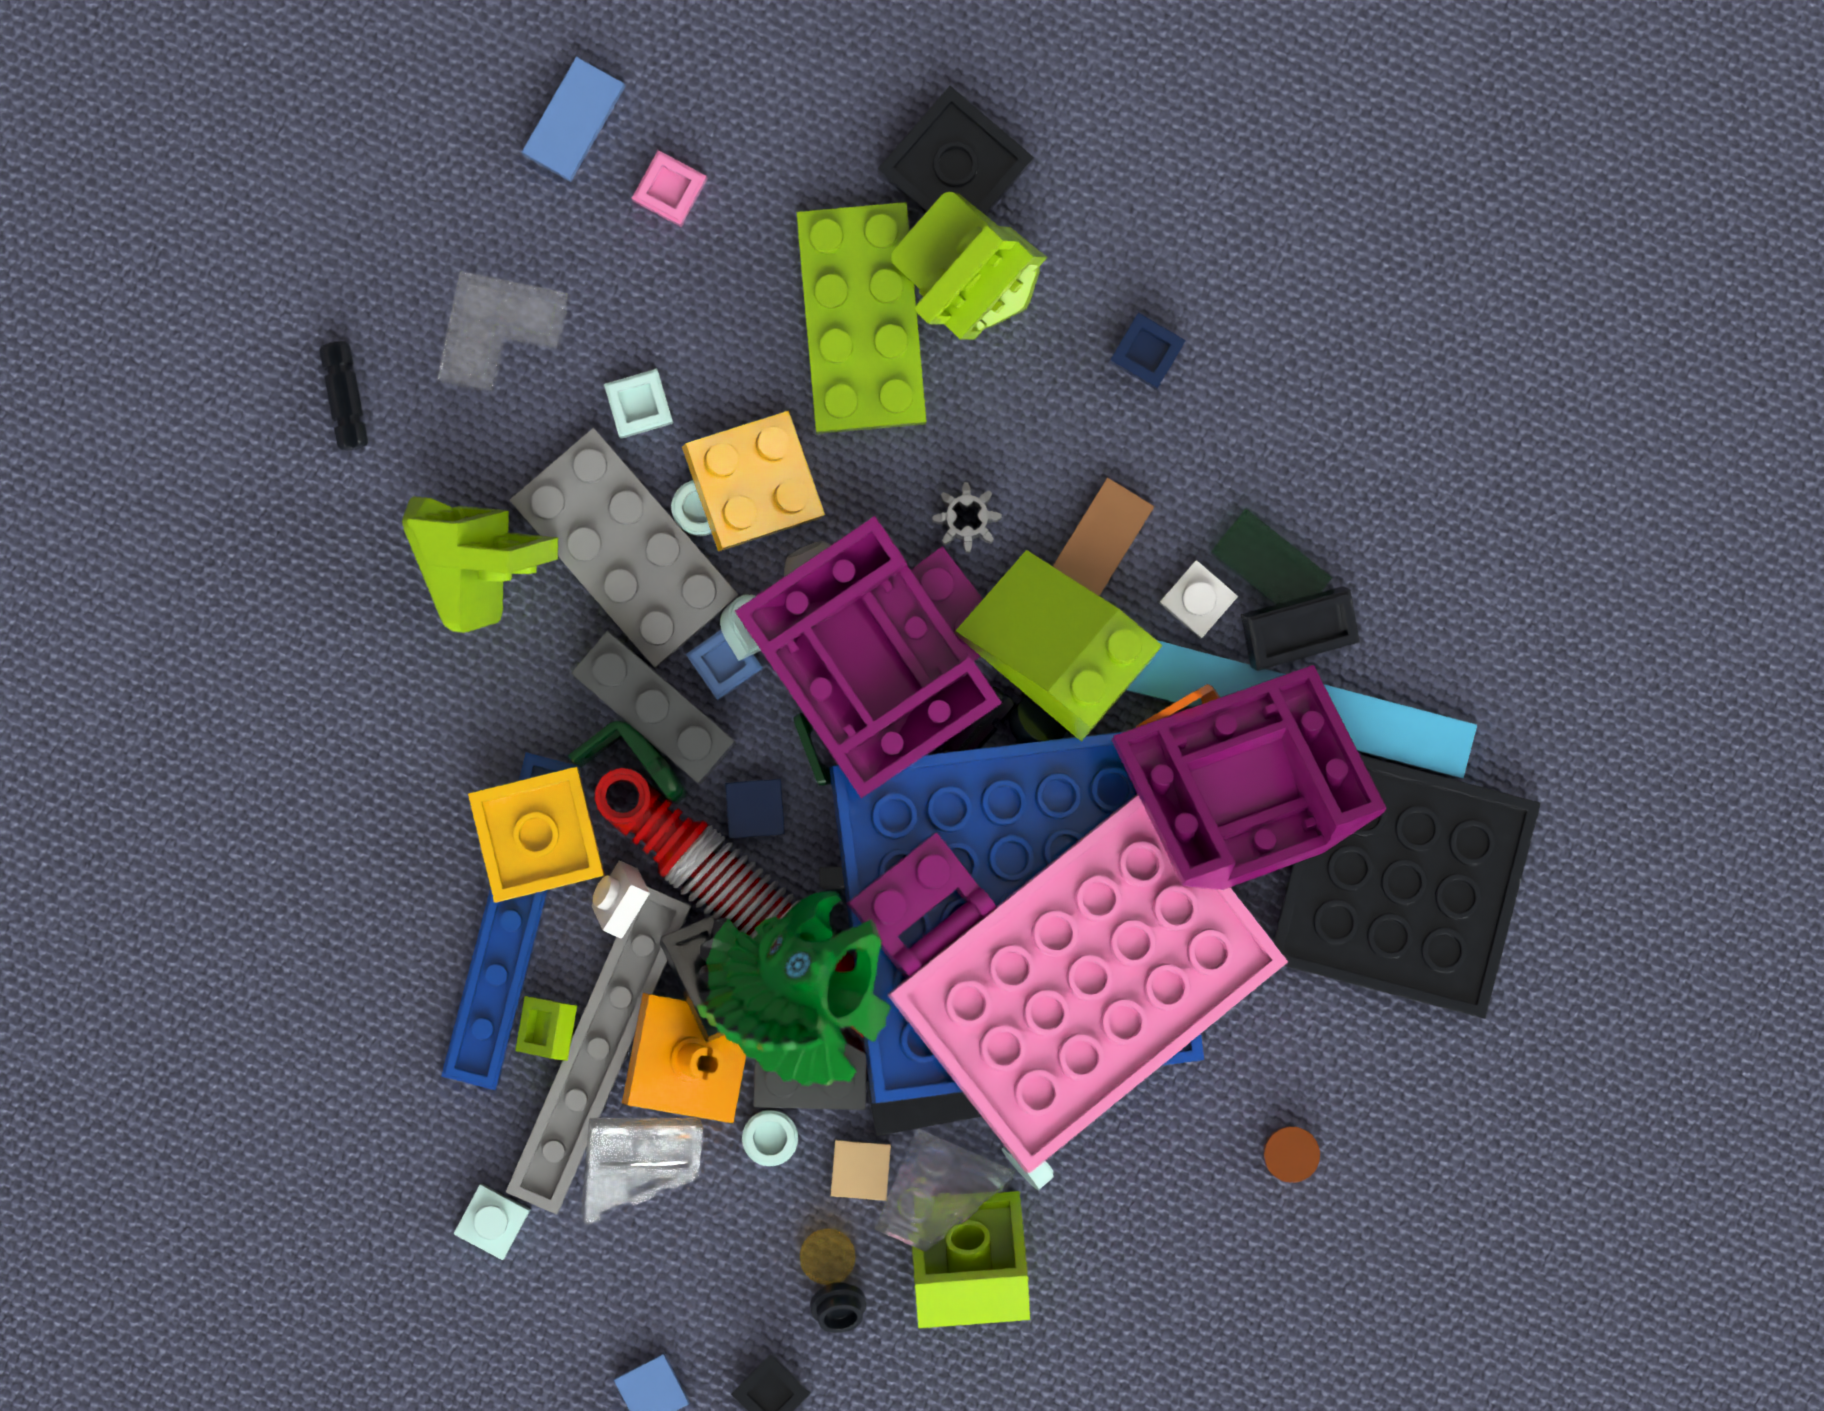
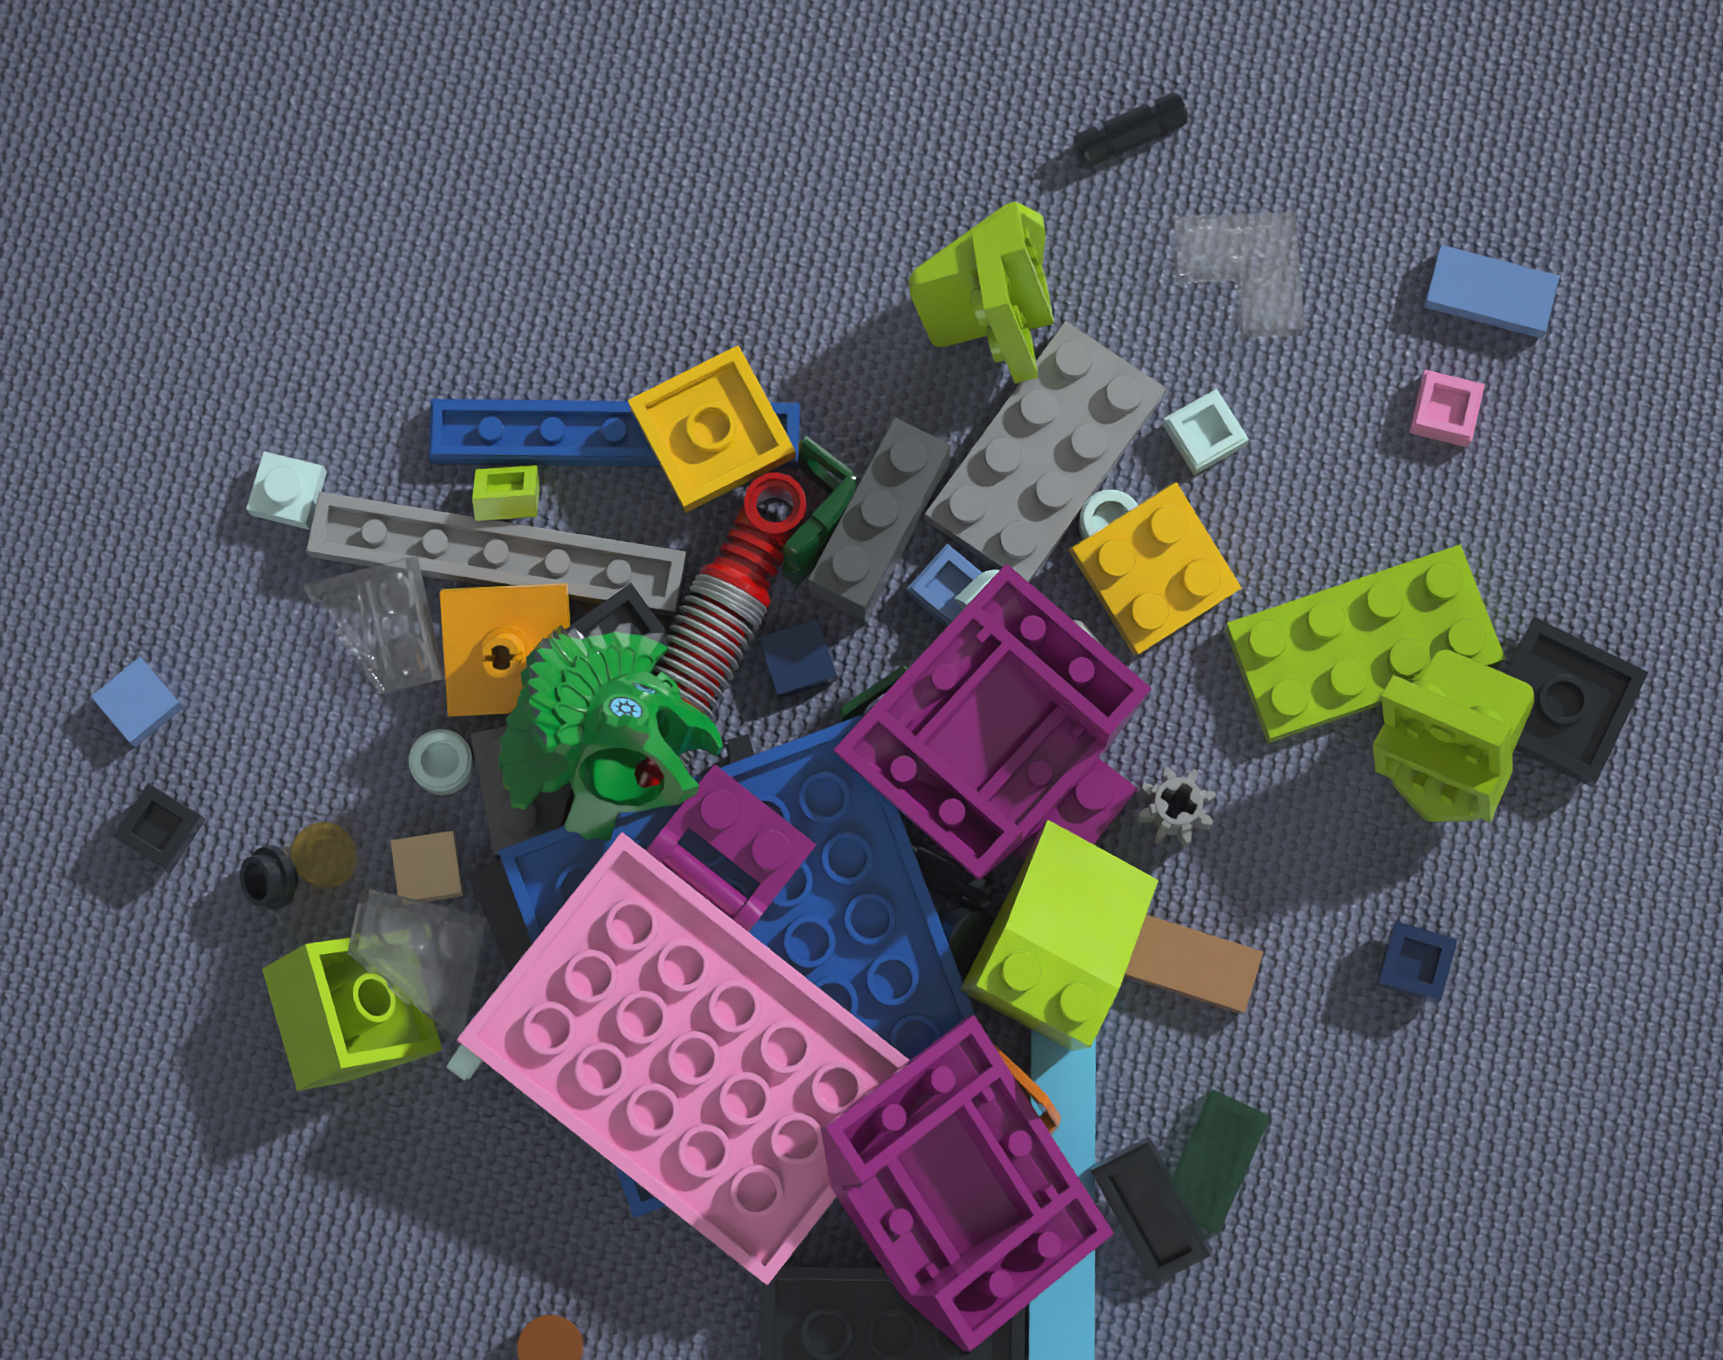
camera: 80 degrees right, 10 degrees down
(619, 898) = (663, 533): white plate -> none
(1198, 599) = (1153, 1089): white plate -> none

